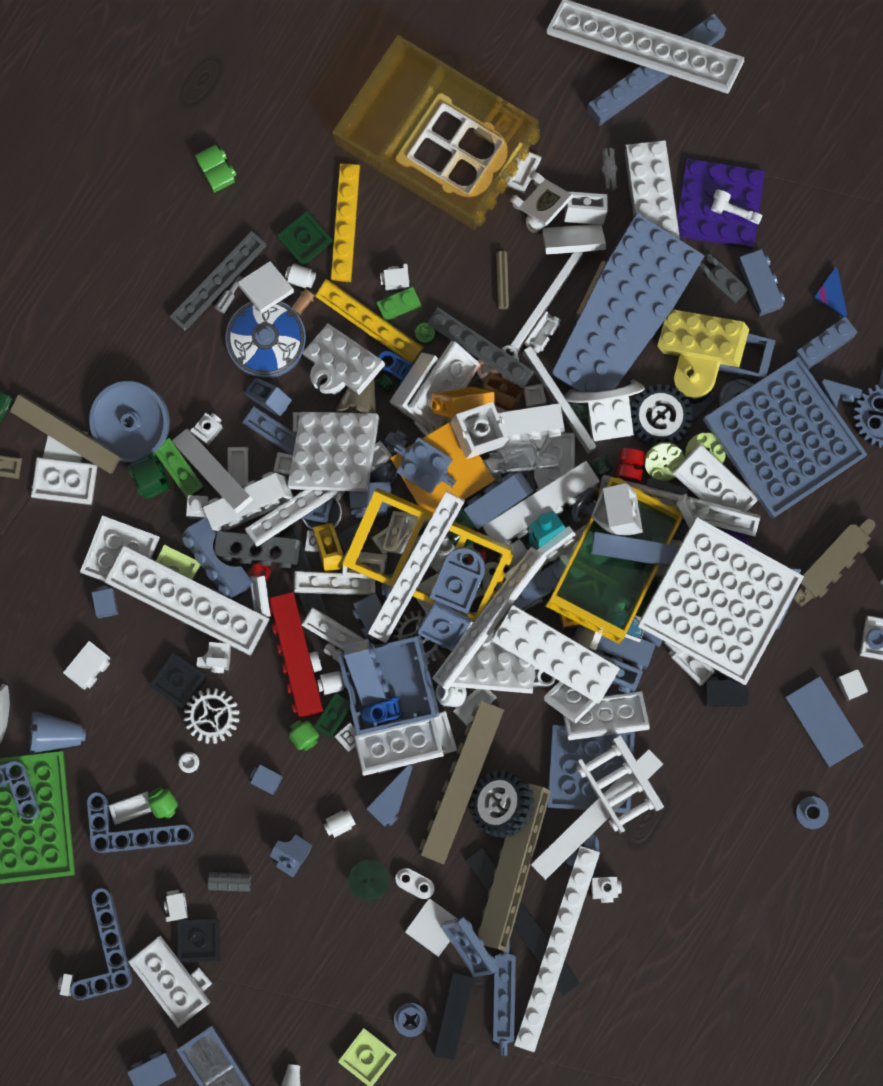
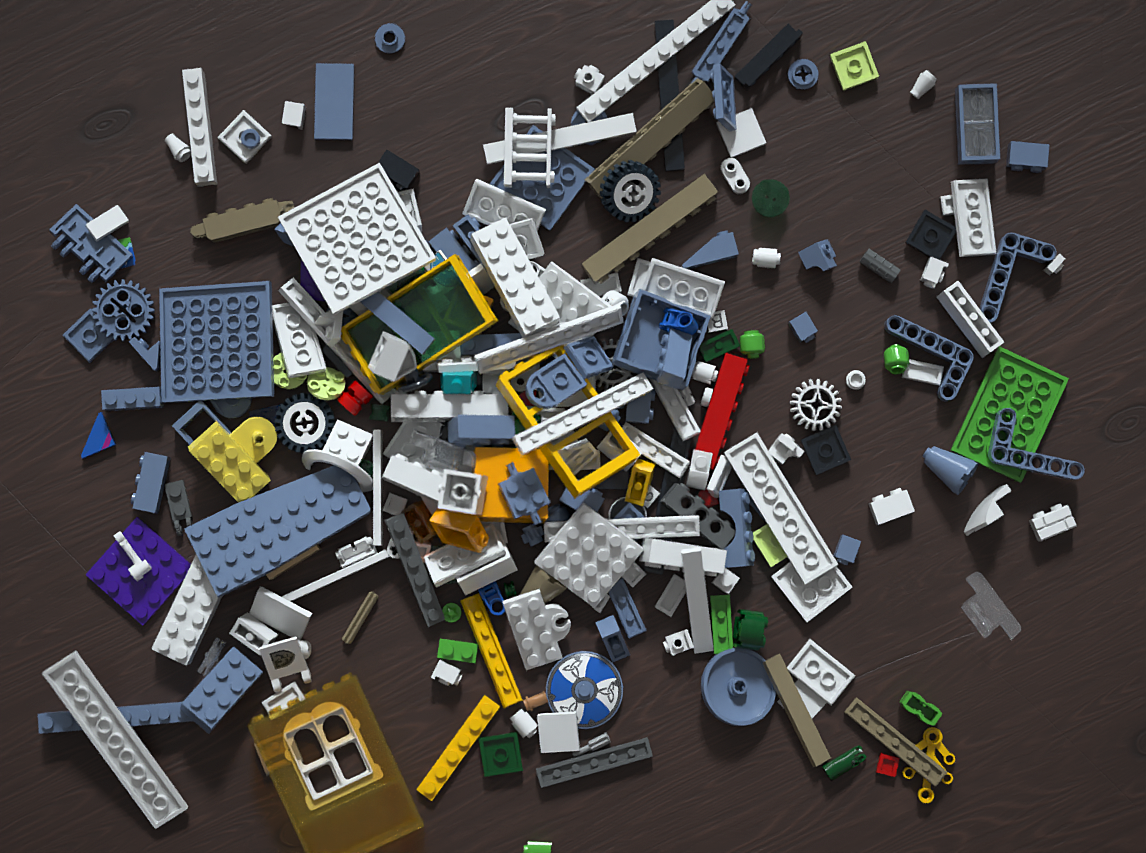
camera: 145 degrees left, 5 degrees up
(115, 882) = (970, 319): none -> white brick
(281, 590) = (699, 469): none -> white brick
(582, 142) = (221, 690): none -> sand blue brick

